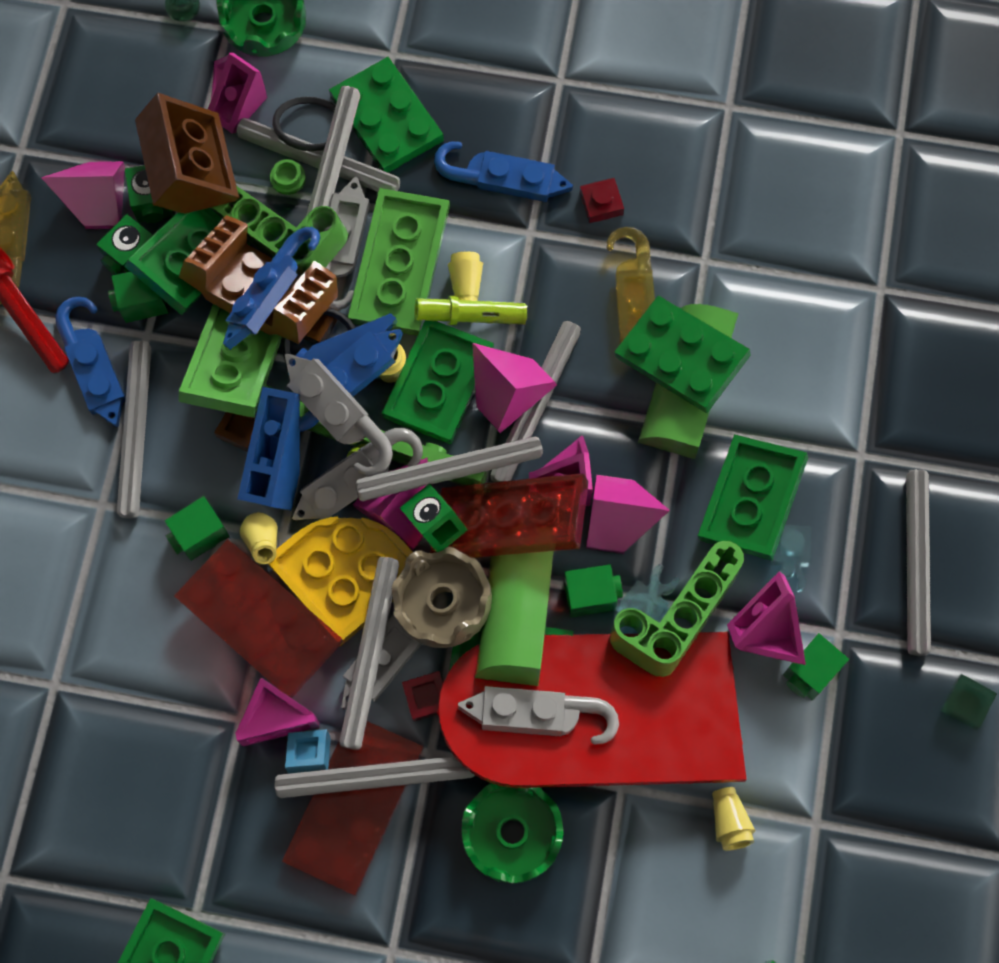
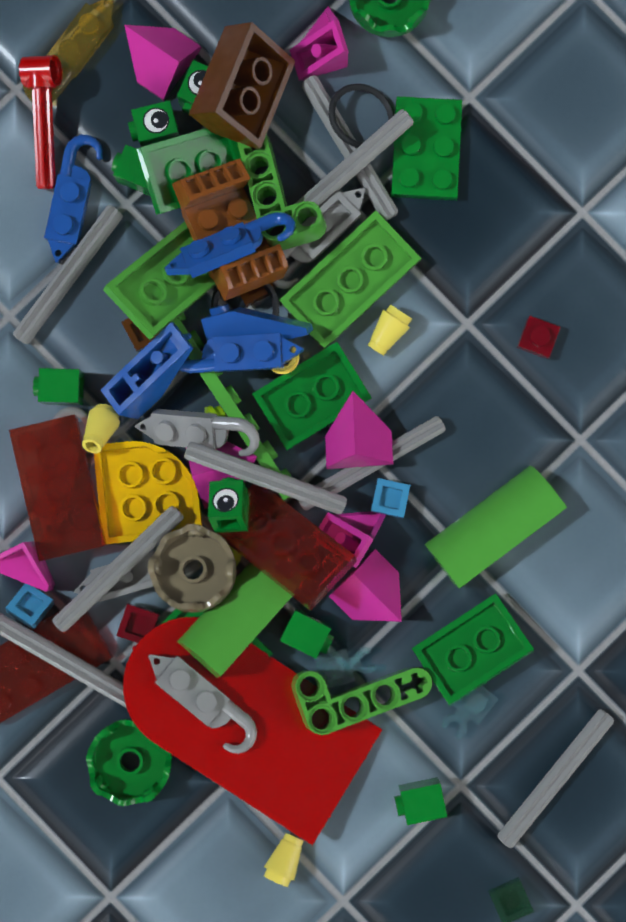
camera: 35 degrees right, 15 degrees up
(287, 177) = (315, 149): bright green plate -> none
(337, 409) = (213, 377): light grey plate -> none
(458, 310) = (361, 352): lime pin -> none
(504, 174) = (480, 262): blue plate -> none
(576, 419) = (390, 498): none -> dark azure plate
(632, 280) = (506, 432): clear yellow plate -> none
(682, 354) = (501, 510): green plate -> none
(770, 623) = (410, 751): dark pink slope -> none

